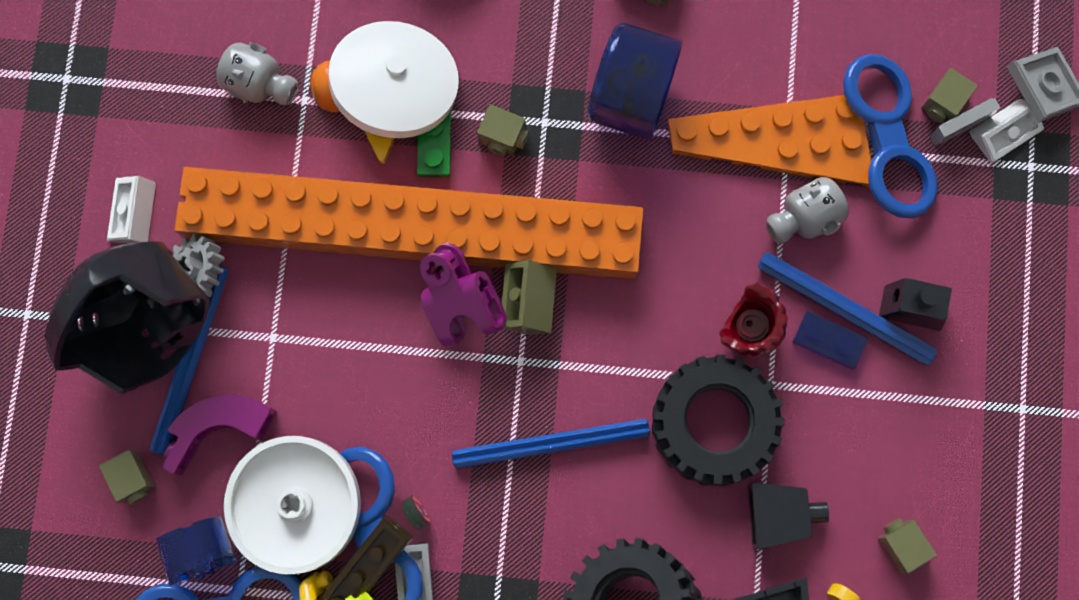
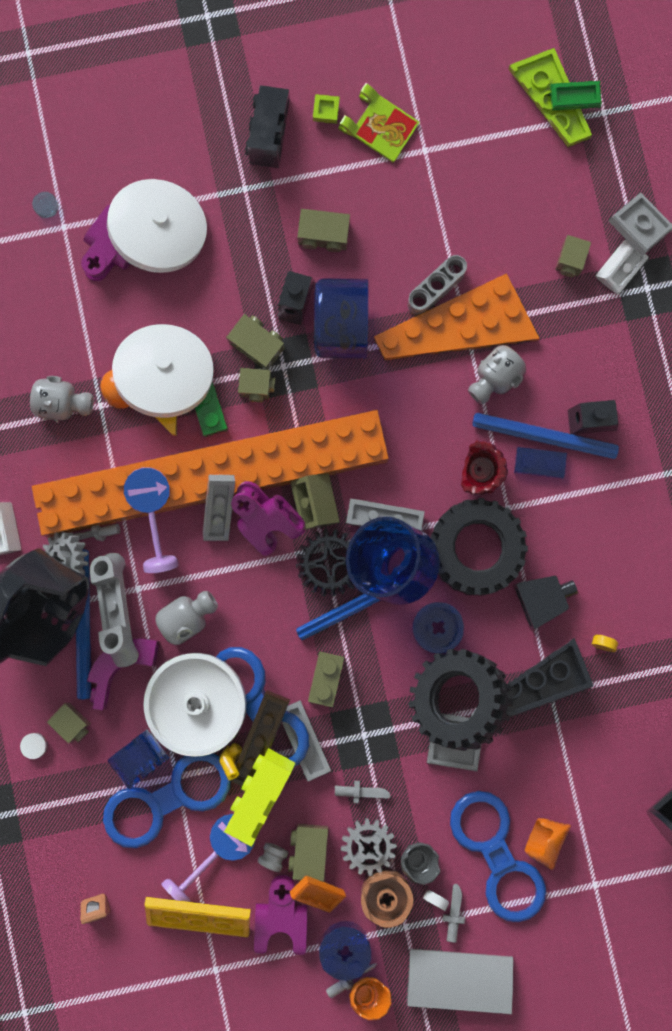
camera: 20 degrees left, 5 degrees up
(74, 491) = (33, 745): none -> white tile
(222, 382) = (116, 633): none -> light grey plate
(248, 252) = (100, 532): none -> light grey piece
(317, 390) = (185, 617): none -> light grey piece
(320, 217) = (147, 492): none -> piece
(404, 265) = (218, 507): none -> light grey plate
(415, 512) = (284, 681): clear green tile -> none
(469, 526) = (326, 679): none -> olive brick
(519, 80) = (256, 342): none -> olive brick
(537, 384) = (327, 540): none -> black gear
(581, 380) = (370, 556): none -> clear blue piece
(588, 38) = (295, 296): none -> black torso
(610, 346) = (364, 511): none -> light grey plate
(635, 487) = (434, 613): none -> clear blue brick
(776, 70) = (441, 274): none -> light grey beam
(890, 136) = (538, 298): blue bar -> none
(906, 545) = (637, 592): olive brick -> none
(964, 121) = (589, 271): light grey tile -> none

